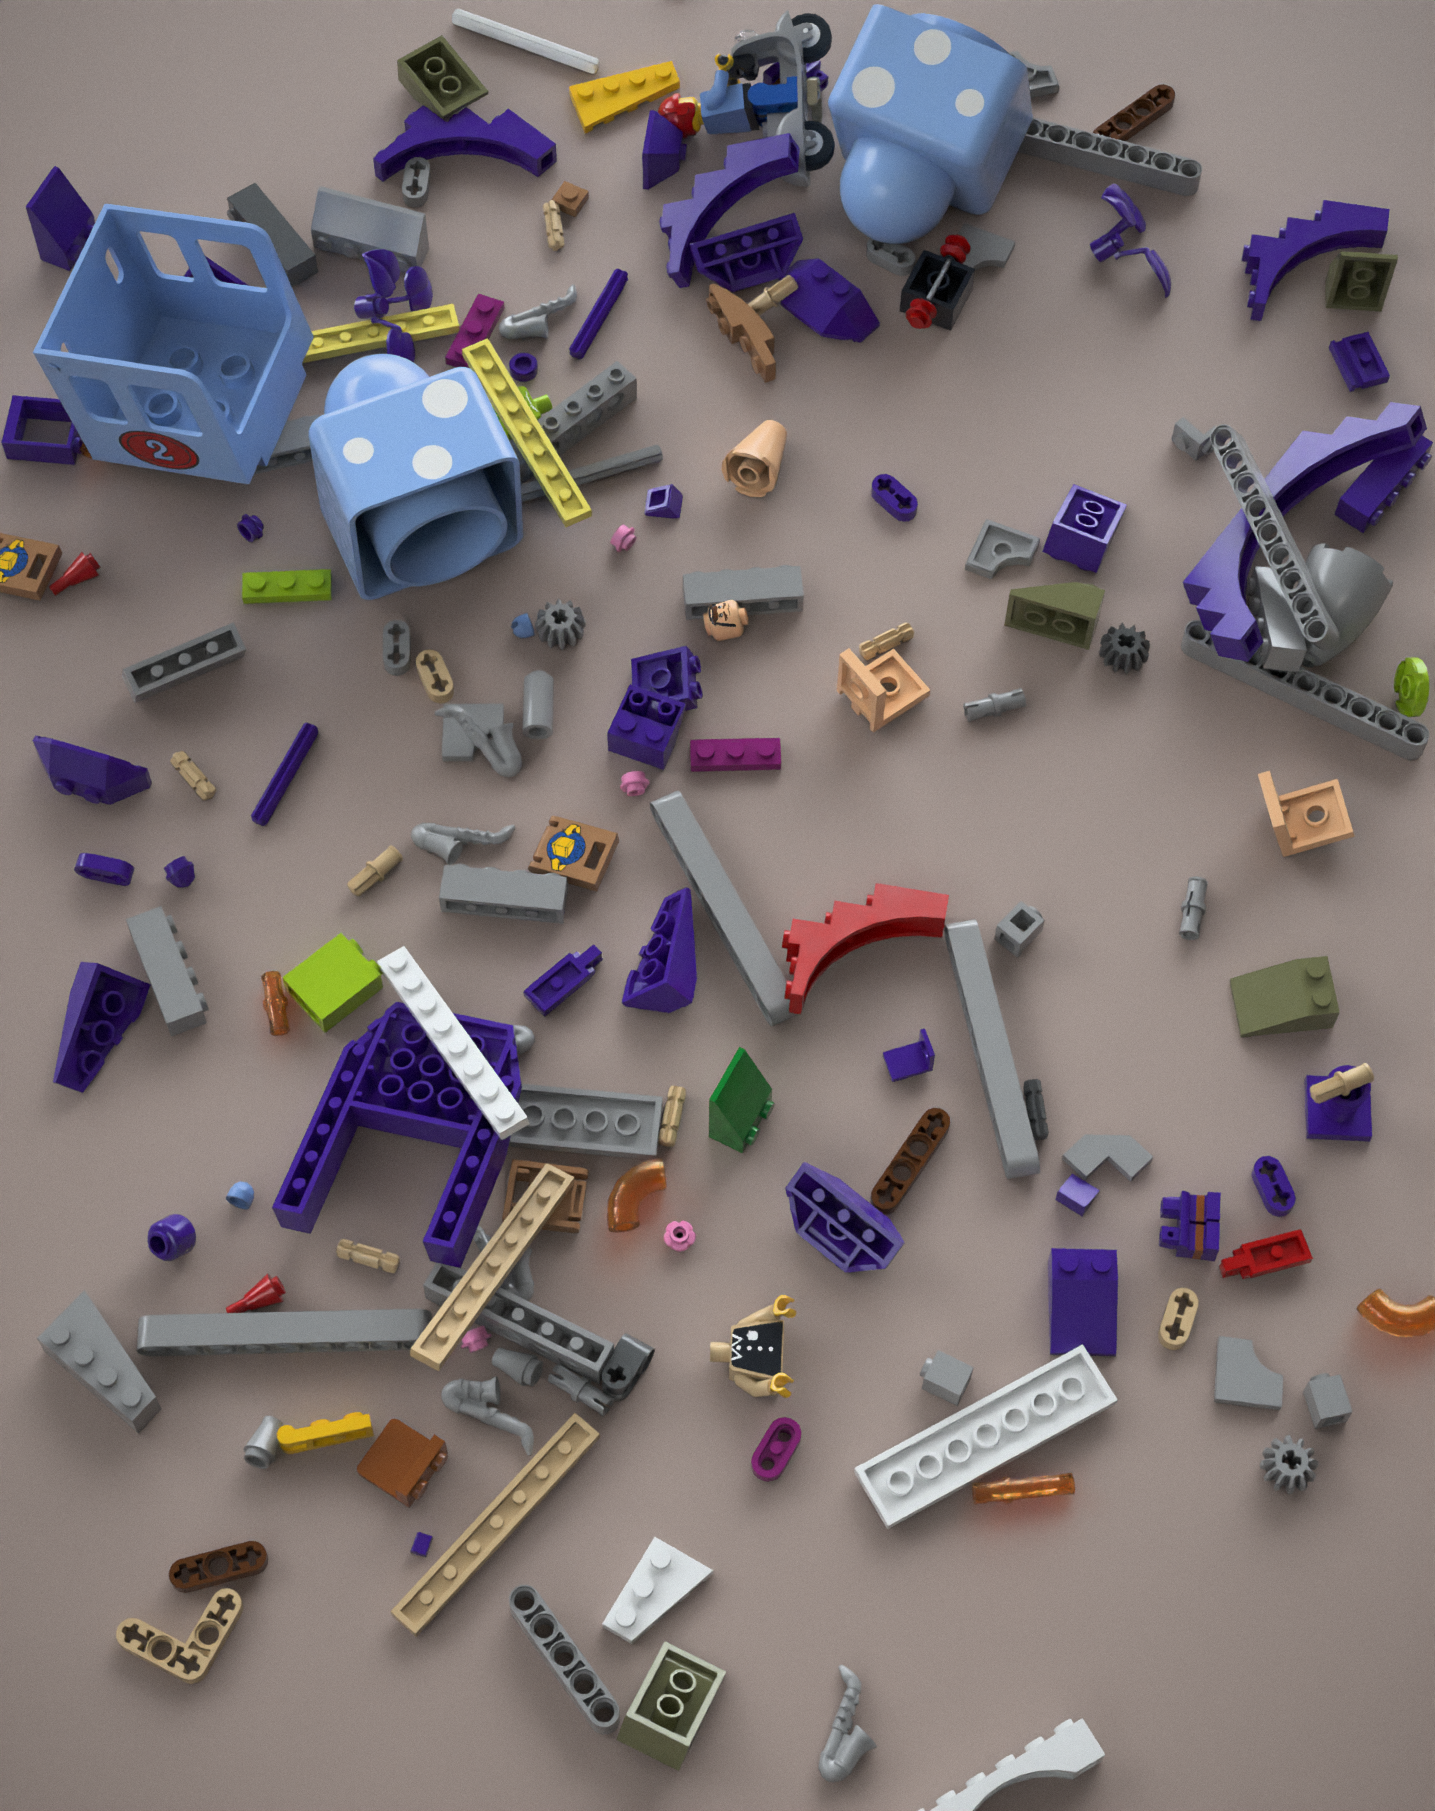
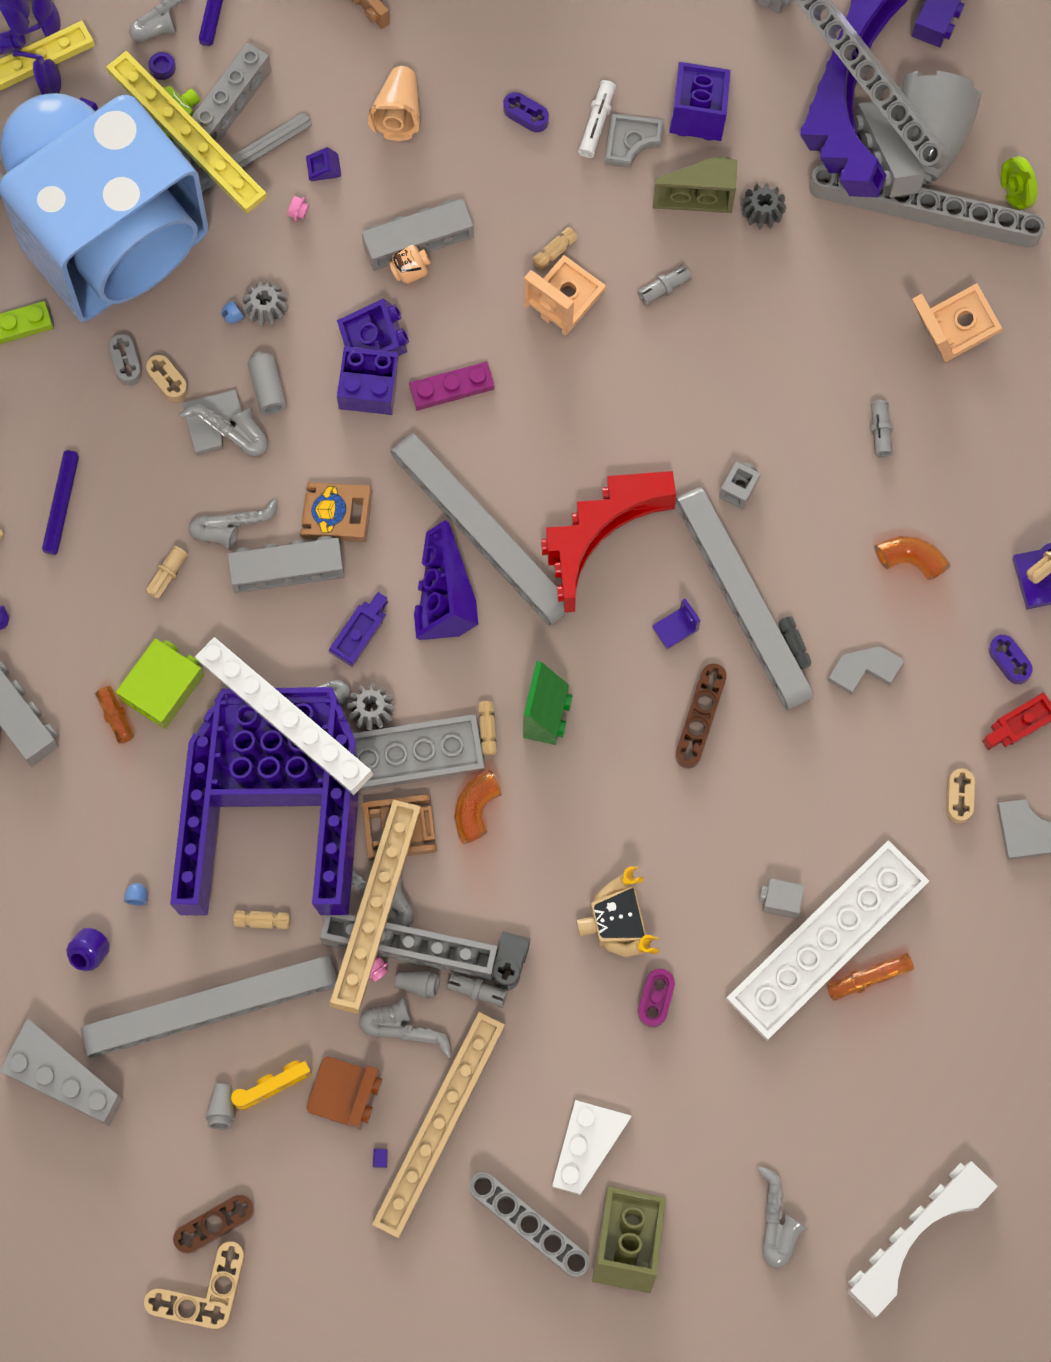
camera: 15 degrees left, 10 degrees up
(264, 1293) = (182, 977): red cone -> none
(475, 328) = (108, 40): magenta plate -> none
(555, 1052) = (367, 697): none -> light grey gear
(634, 783) = (371, 435): bright pink plate -> none
(682, 1243) = (523, 840): bright pink plate -> none
(841, 1222) = (659, 786): dark purple wedge -> none
(983, 500) = (604, 93): none -> white pin
(1076, 1194) = (848, 709): slope -> none
(1083, 1300) = (878, 802): dark purple slope -> none
(1194, 1044) = (914, 552): none -> clear orange cylinder
(1197, 1225) = (955, 710): dark purple hips -> none
(1286, 998) = (980, 490): olive slope -> none

